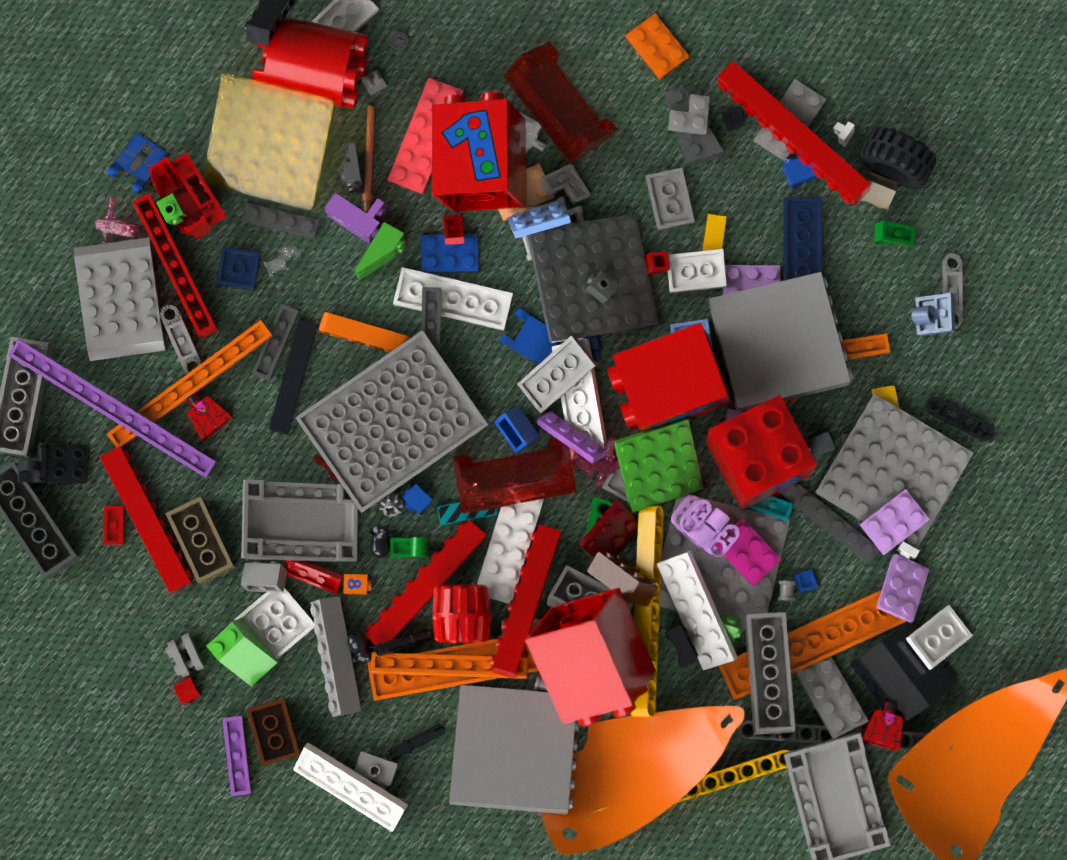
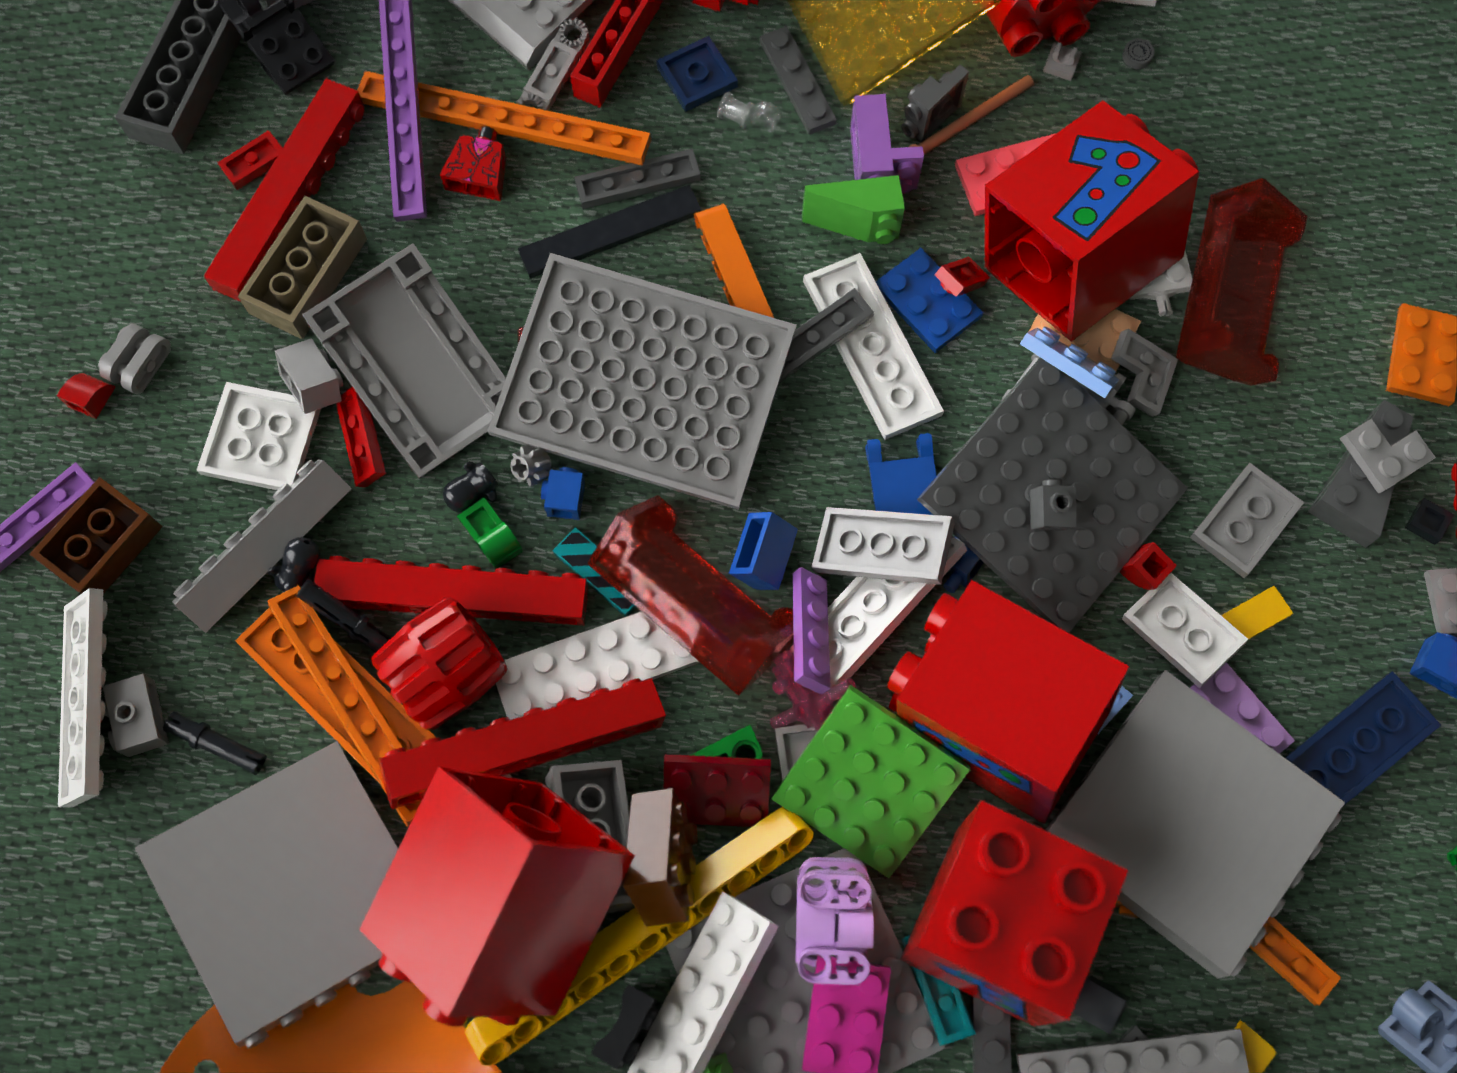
camera: 50 degrees right, 10 degrees down
(242, 652) = (185, 420): slope -> none
(357, 584) = (386, 500): orange brick -> none

